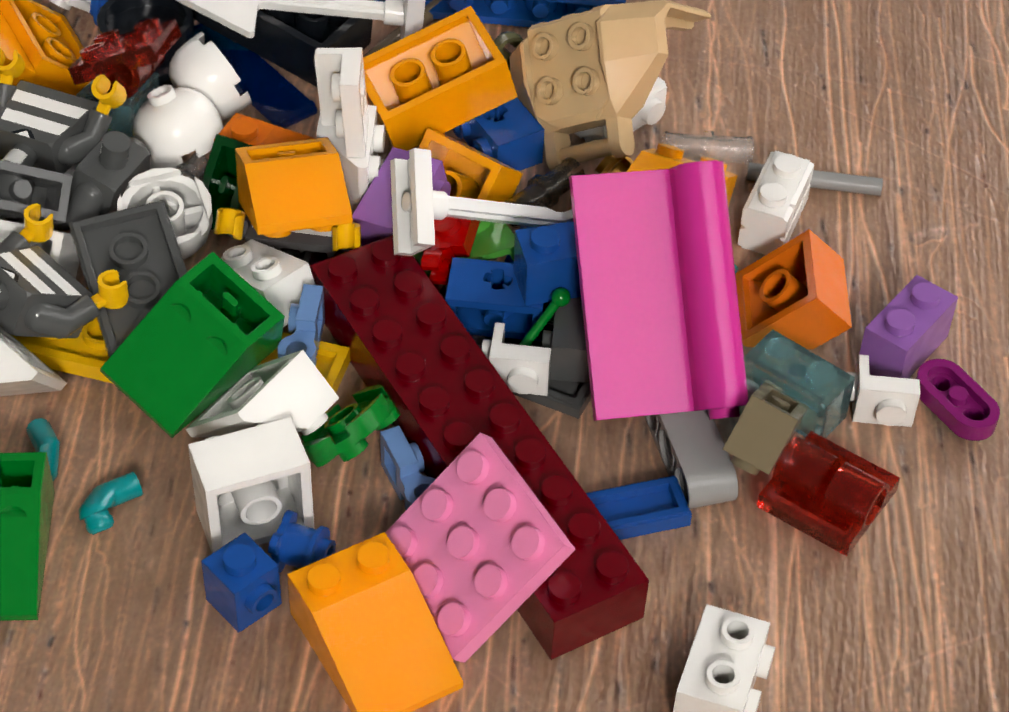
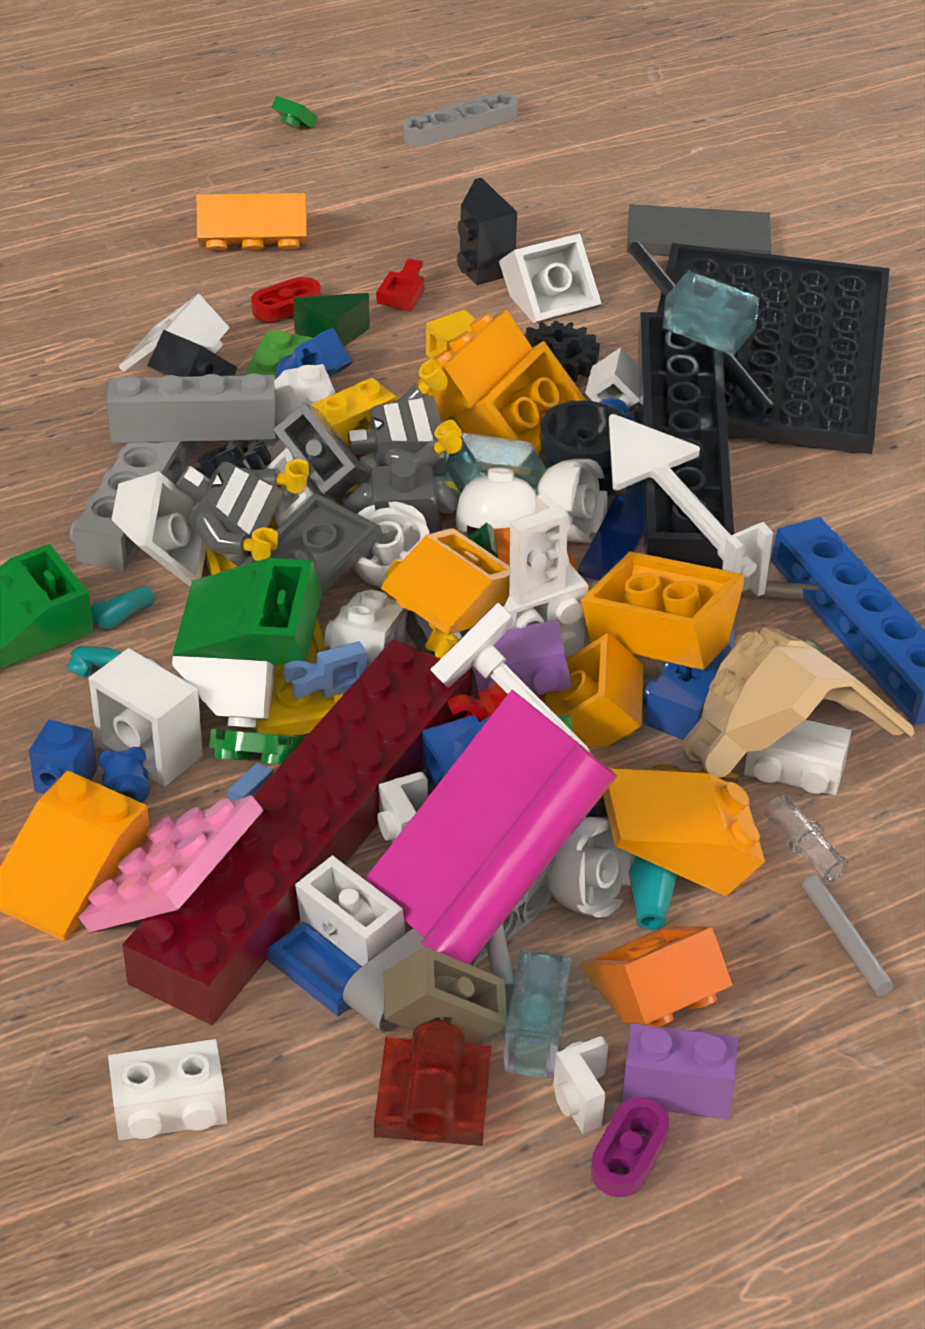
camera: 60 degrees right, 5 degrees down
(126, 57) = (512, 436): clear red plate -> none
(547, 188) = (639, 751): clear smoke pin -> none
(616, 448) = (349, 911): none -> white brick
(775, 202) = (767, 910): white brick -> none

